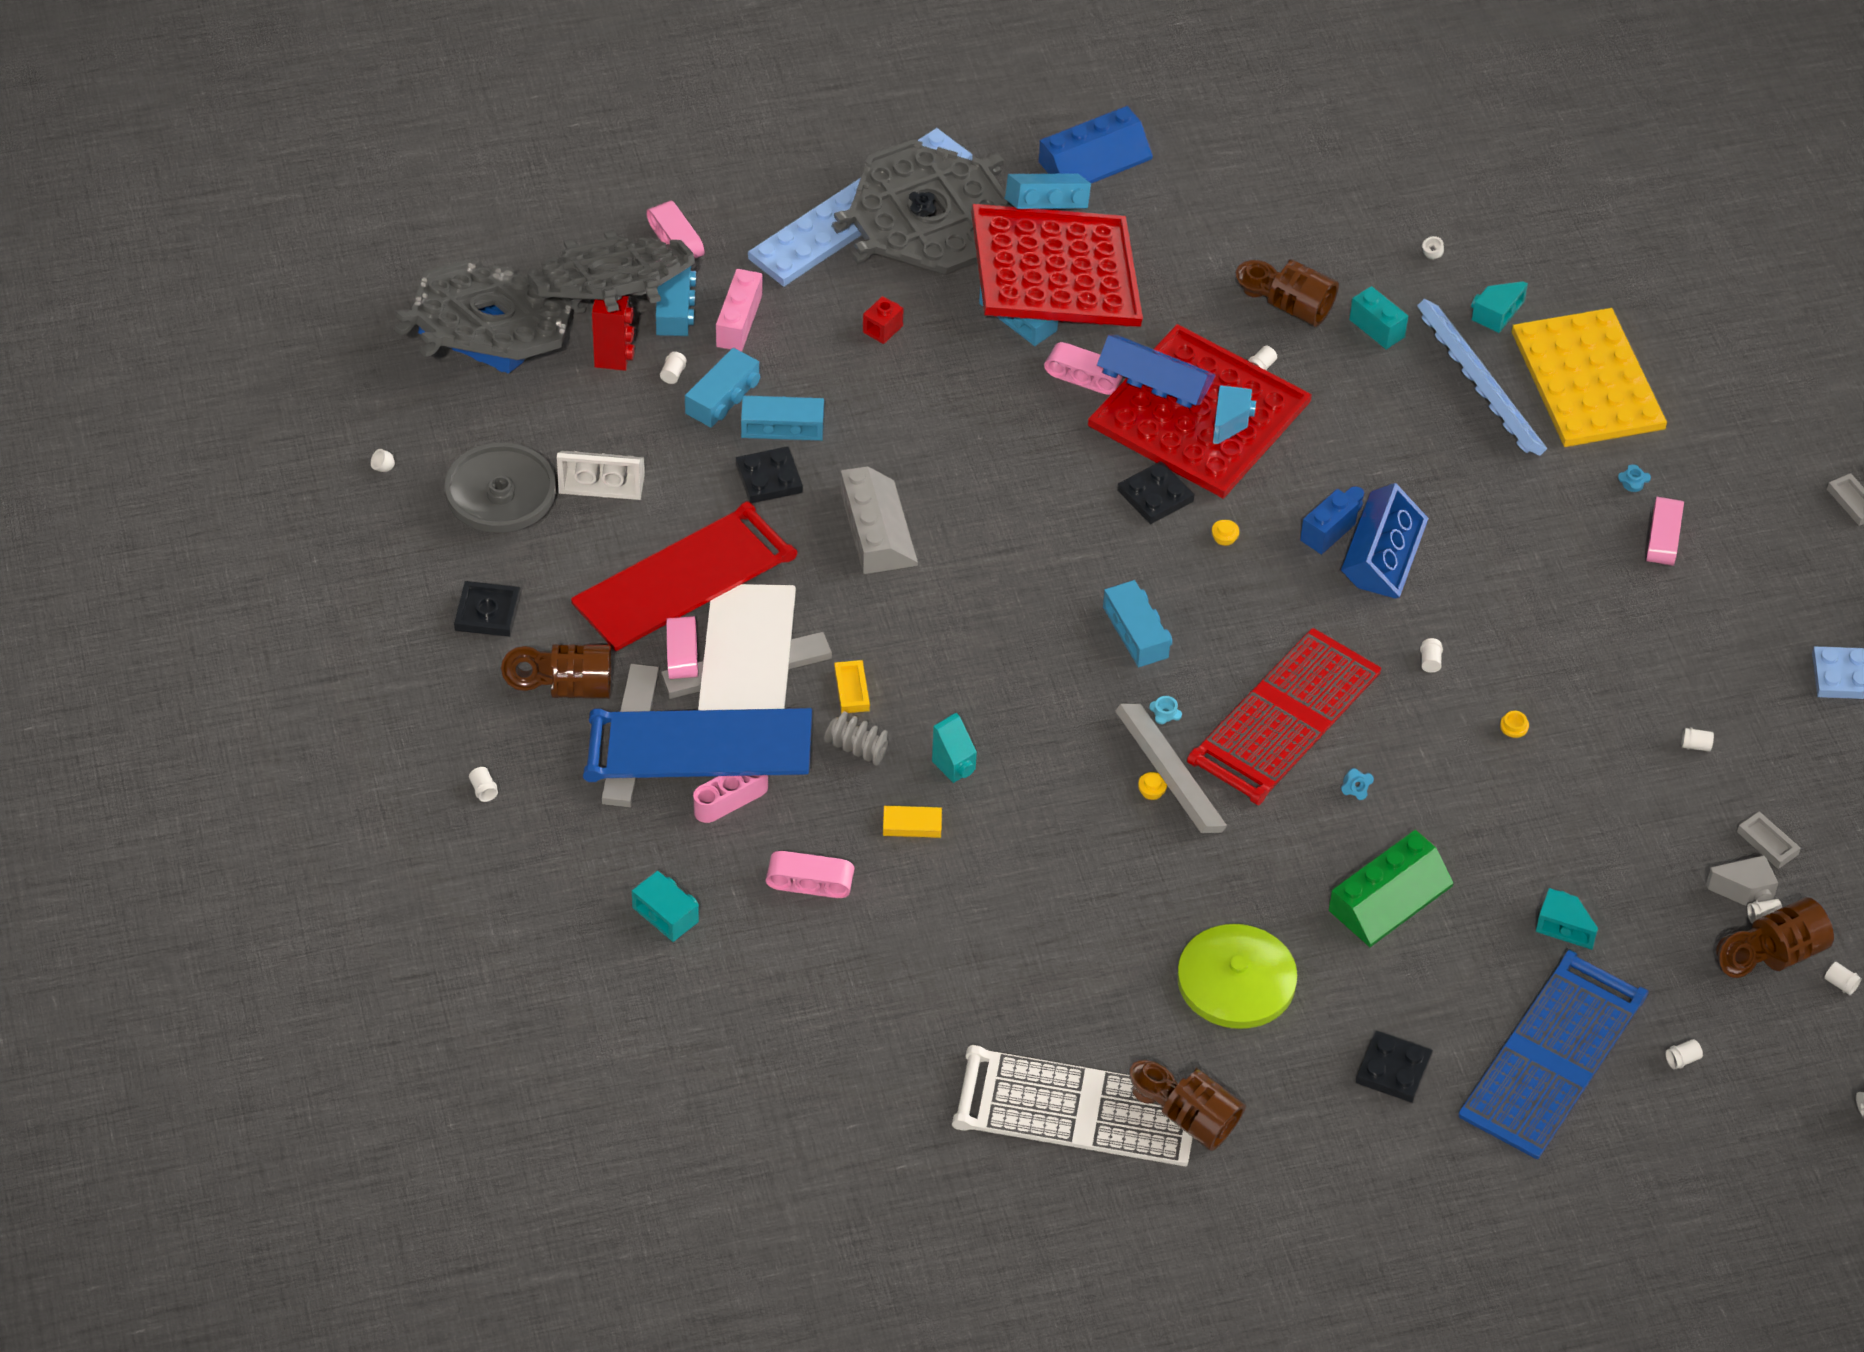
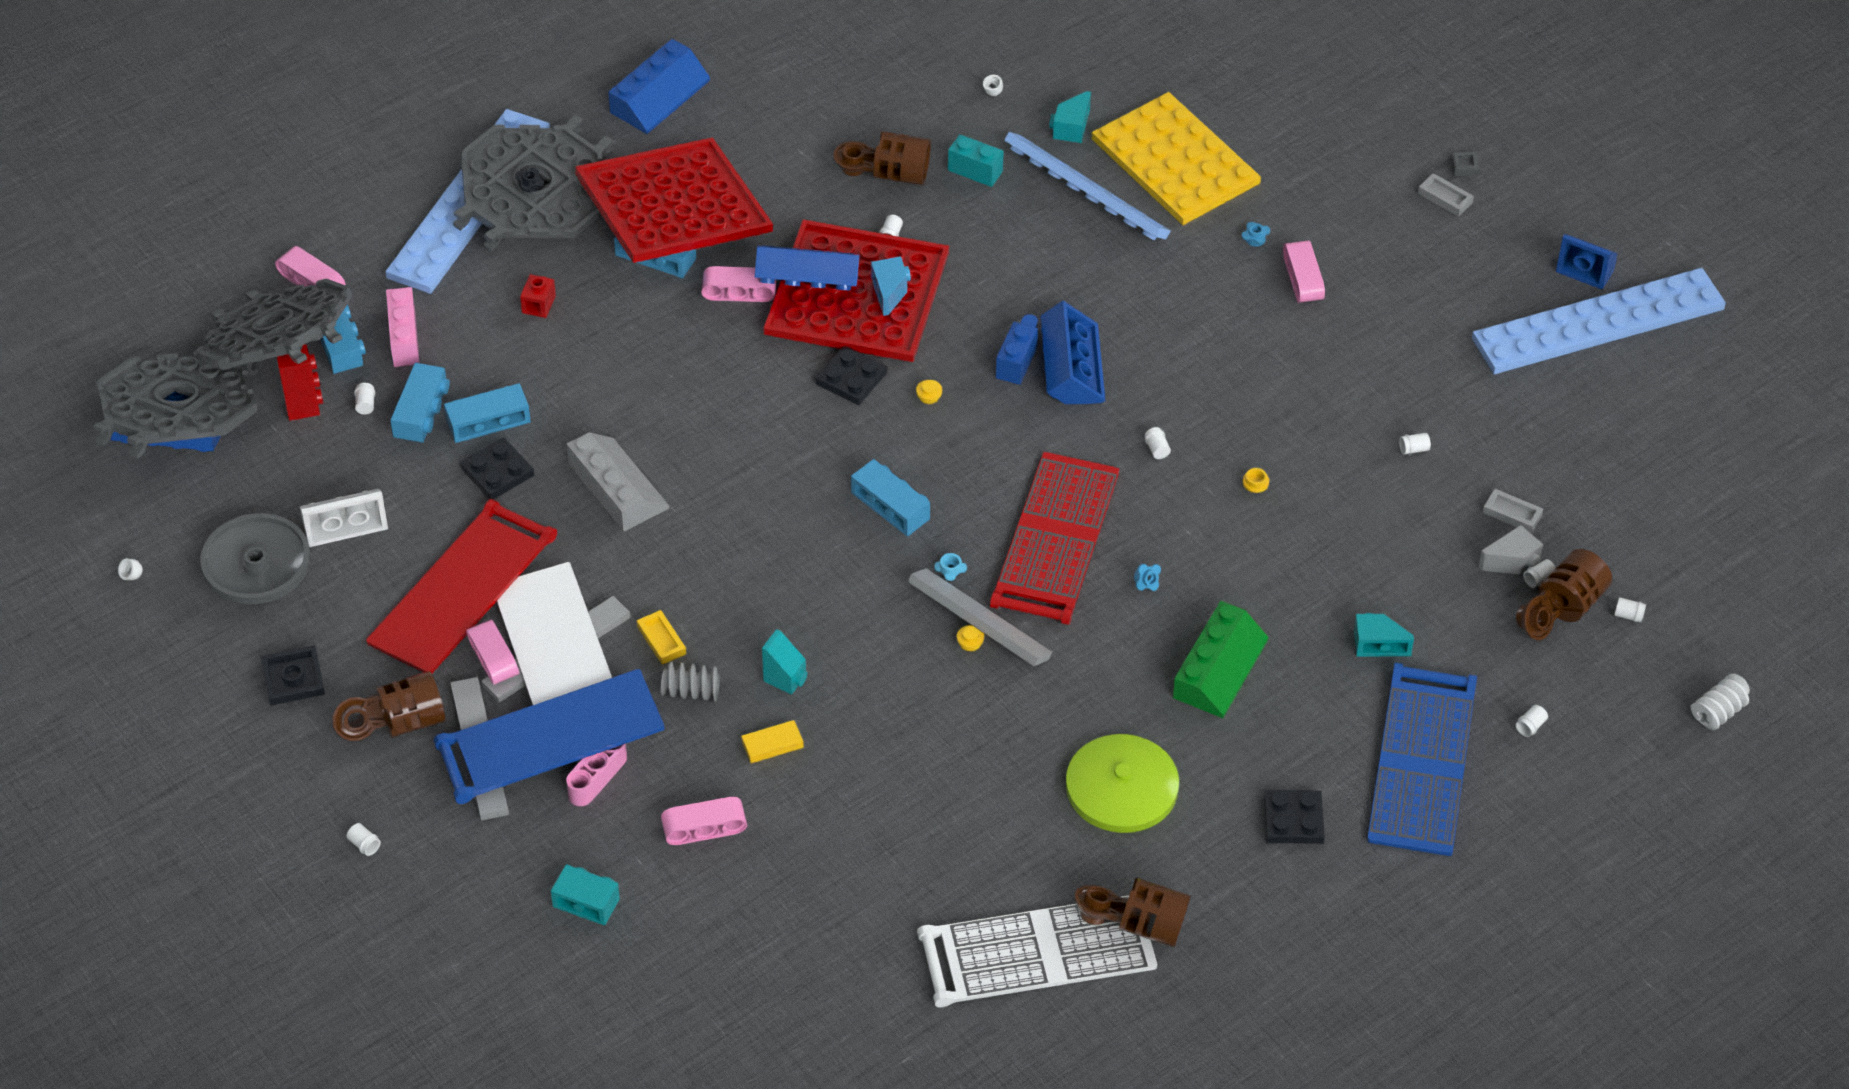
camera: 20 degrees left, 0 degrees up
(1047, 191) = (635, 135): dark azure brick -> none

